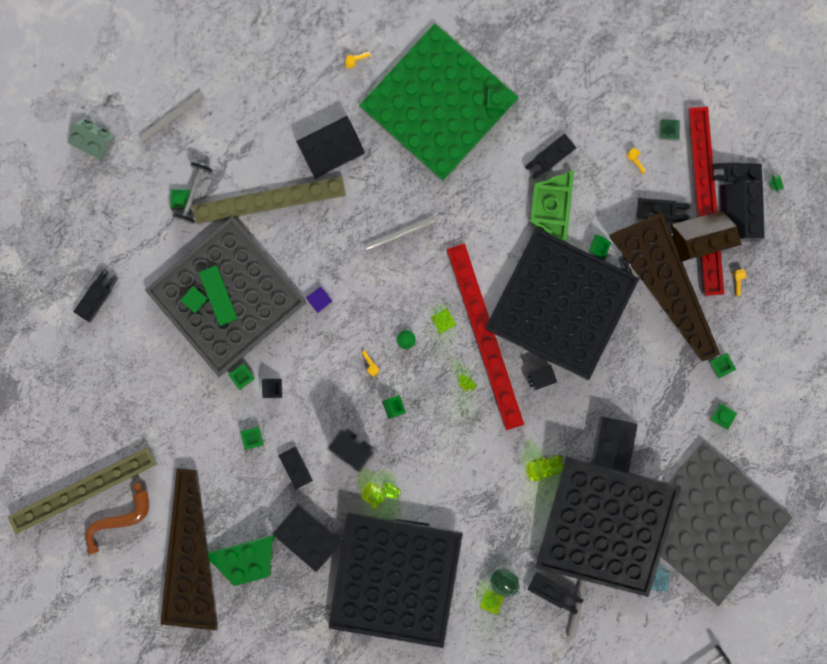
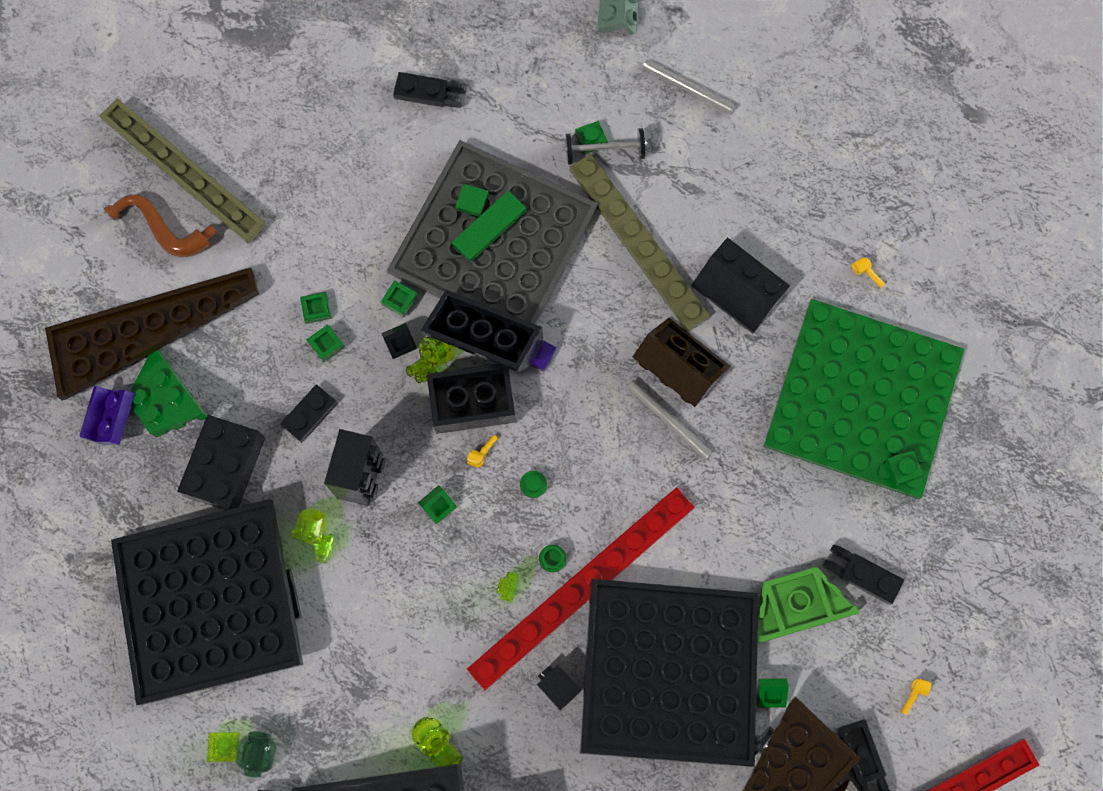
camera: 70 degrees right, 10 degrees down
(223, 435) = (315, 307): none -> green tile
(241, 602) = (106, 416): none -> dark purple bracket
(291, 369) = (432, 354): none -> clear neon green piece
(293, 330) = (484, 331): none -> black slope
(333, 355) = (471, 398): none -> black brick
(365, 208) = (680, 361): none -> dark brown slope
(443, 321) = (579, 523): clear neon green plate -> none
(459, 347) = (552, 558): none -> green plate
(669, 129) = (980, 723): clear green plate -> none

